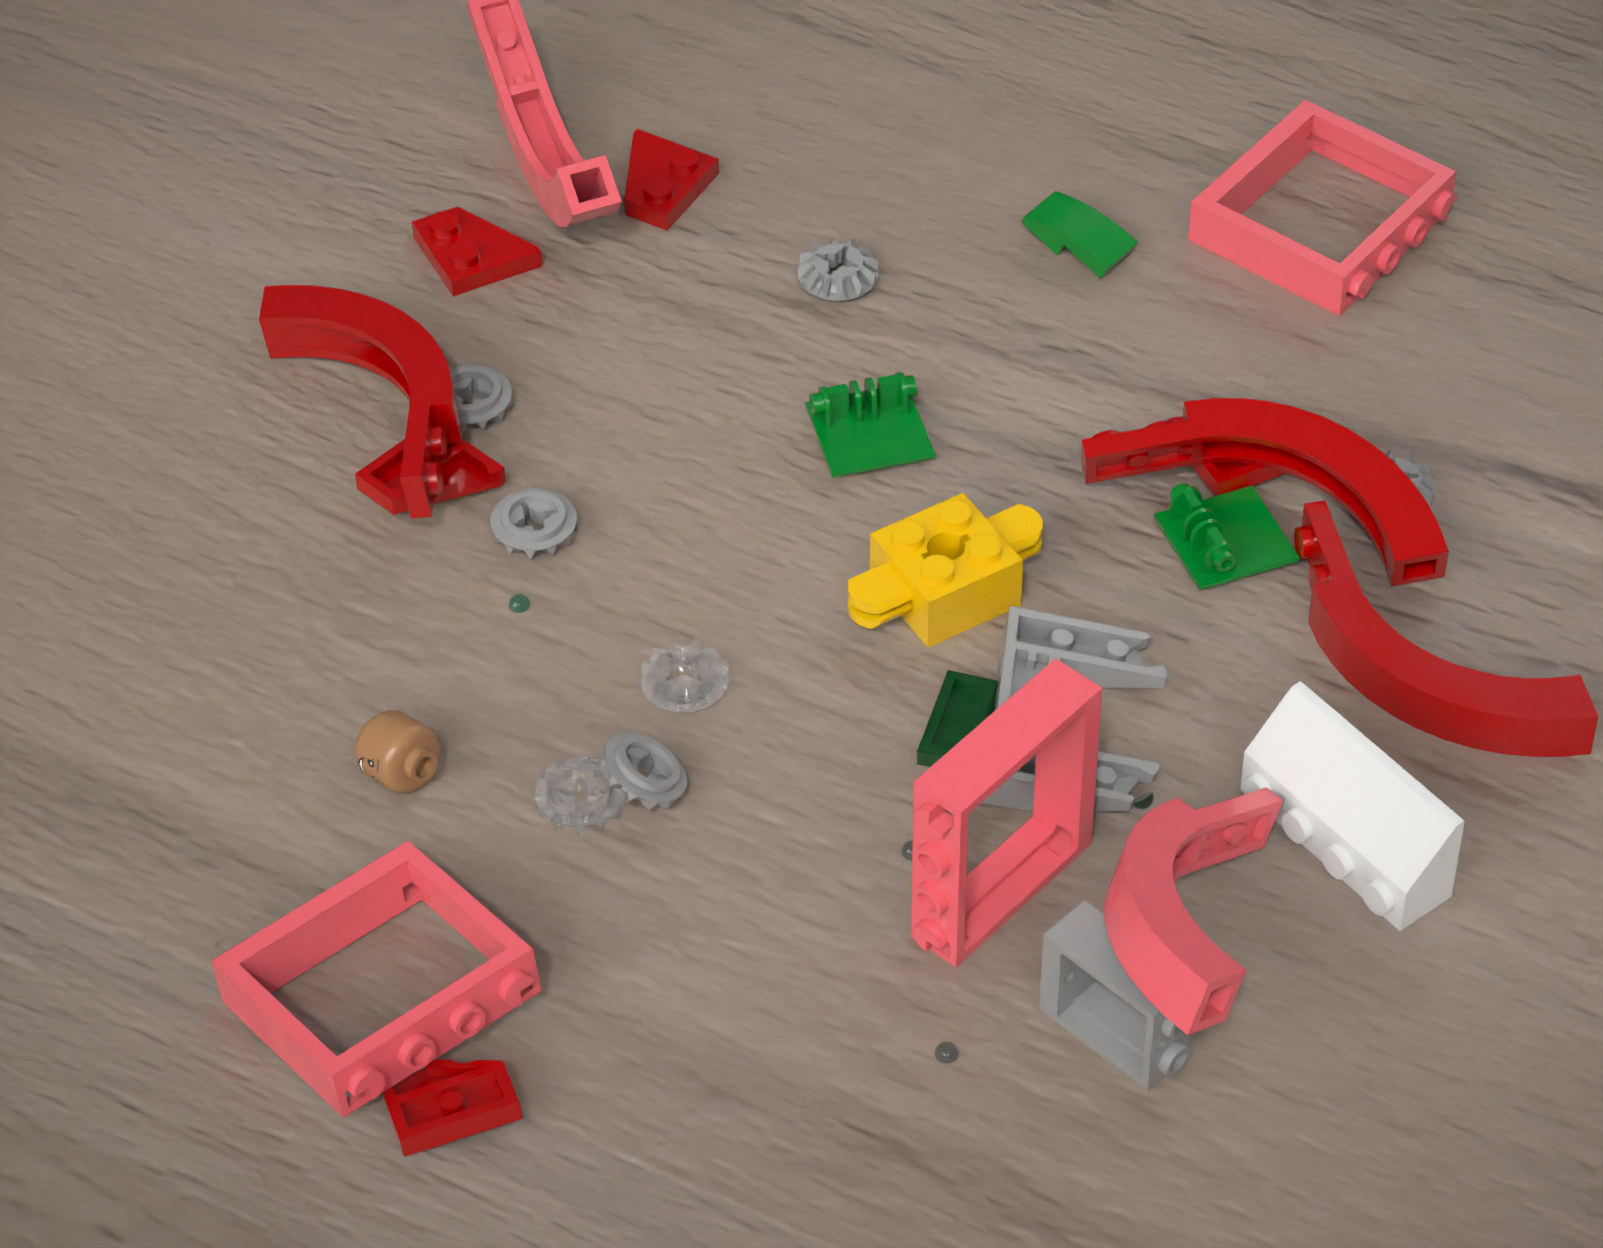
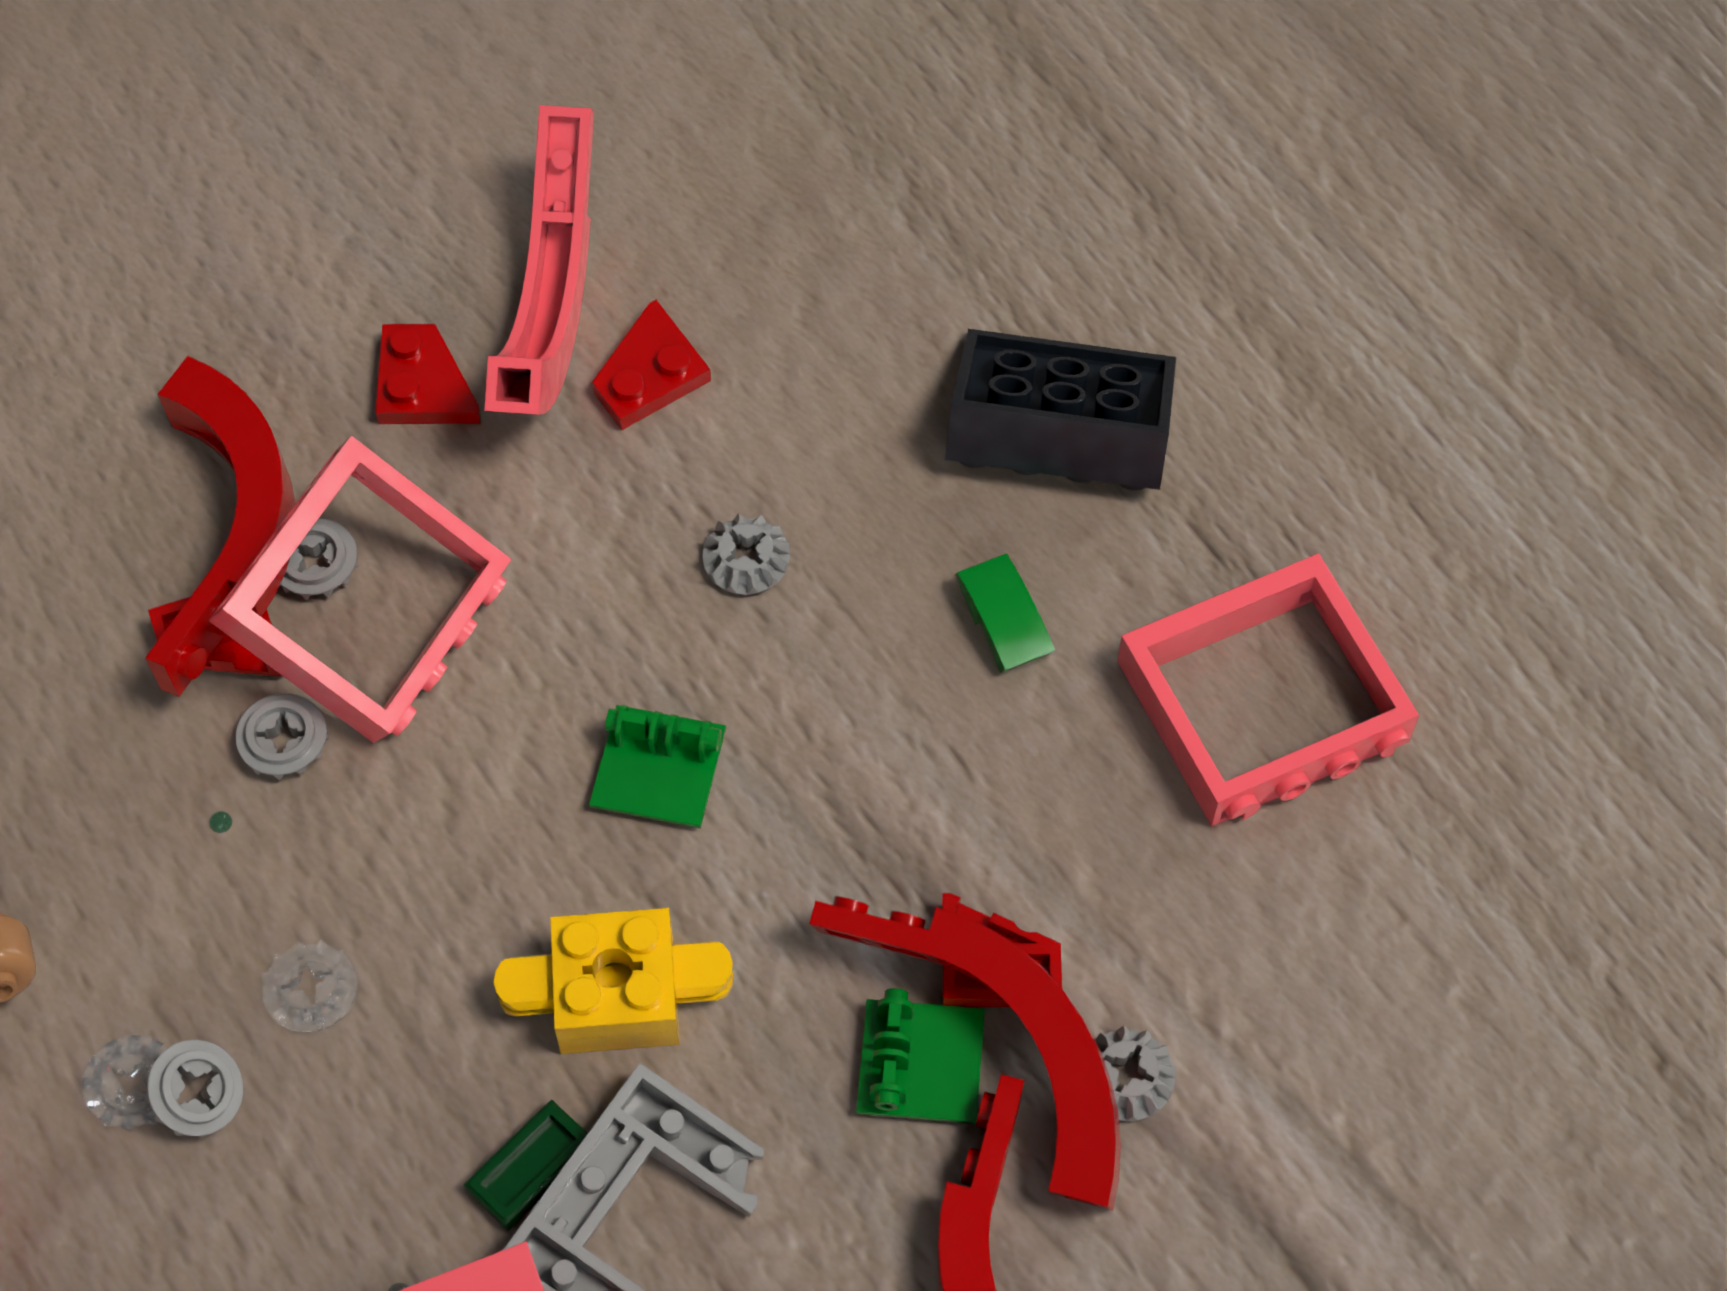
camera: 25 degrees right, 15 degrees up
(523, 439) = (302, 668): none -> coral window
(1032, 90) = (1061, 409): none -> black slope

